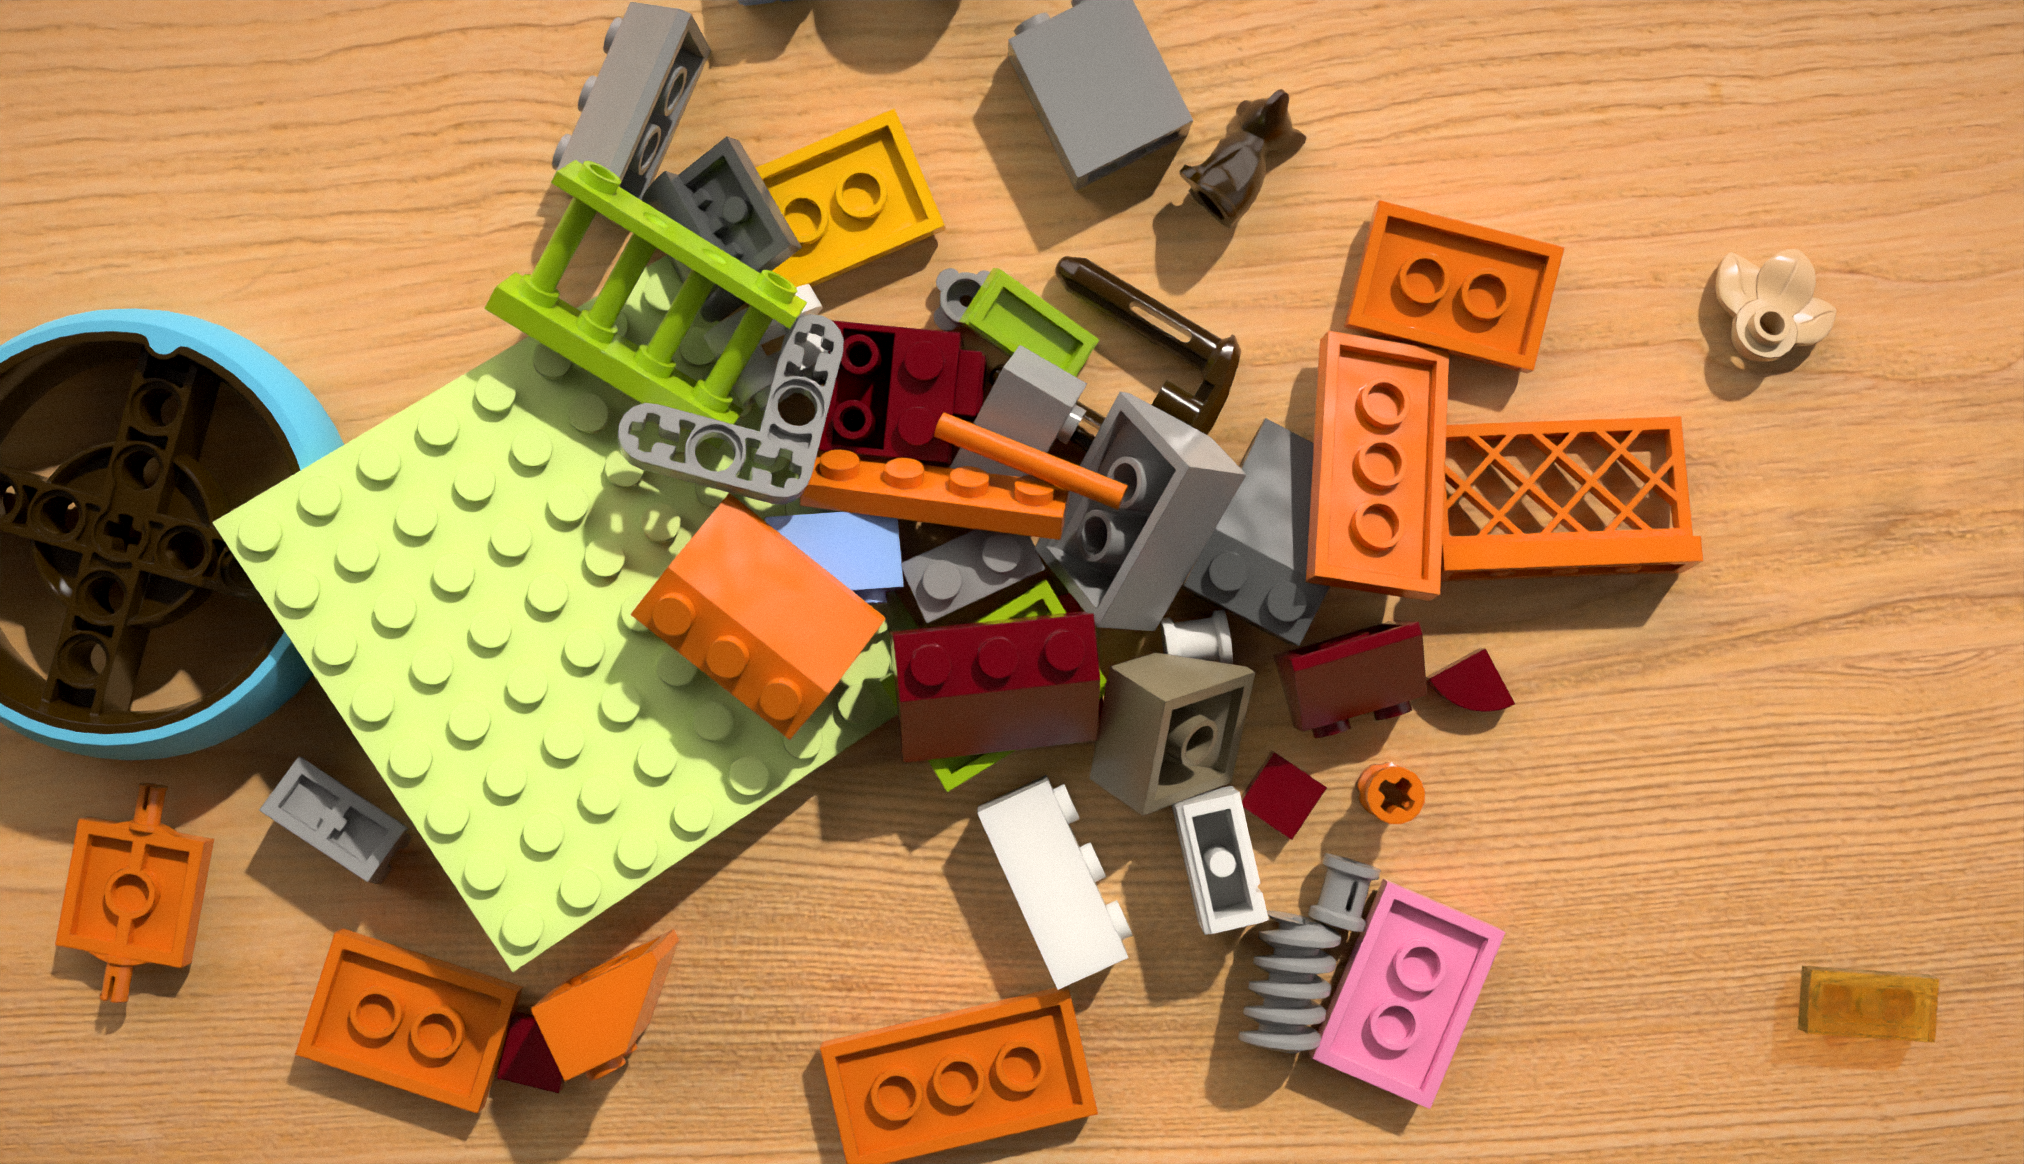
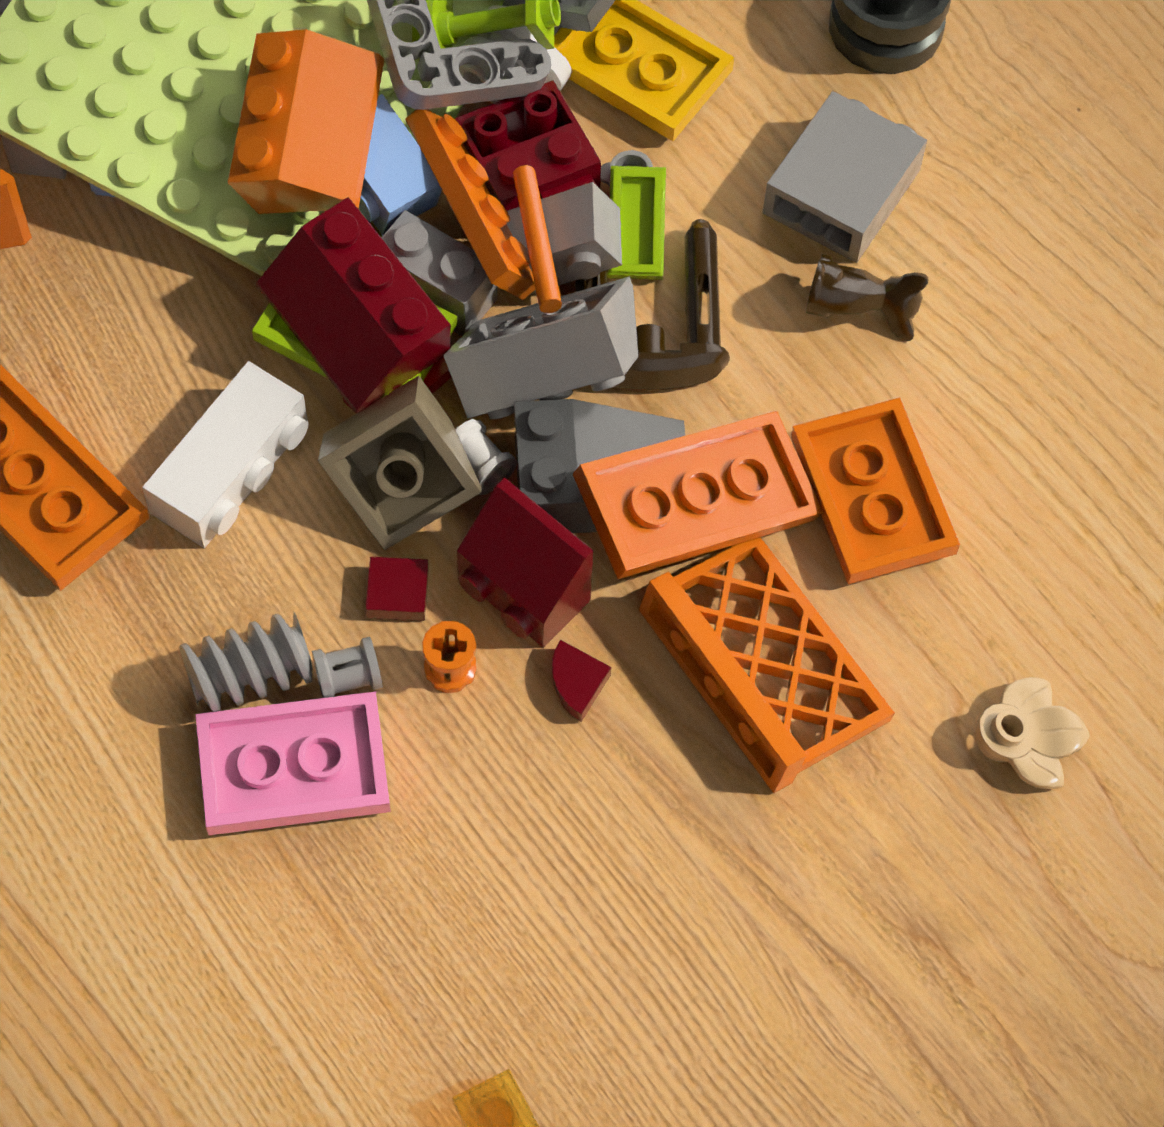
camera: 60 degrees right, 25 degrees down
(1219, 860) = (317, 551): white brick -> none

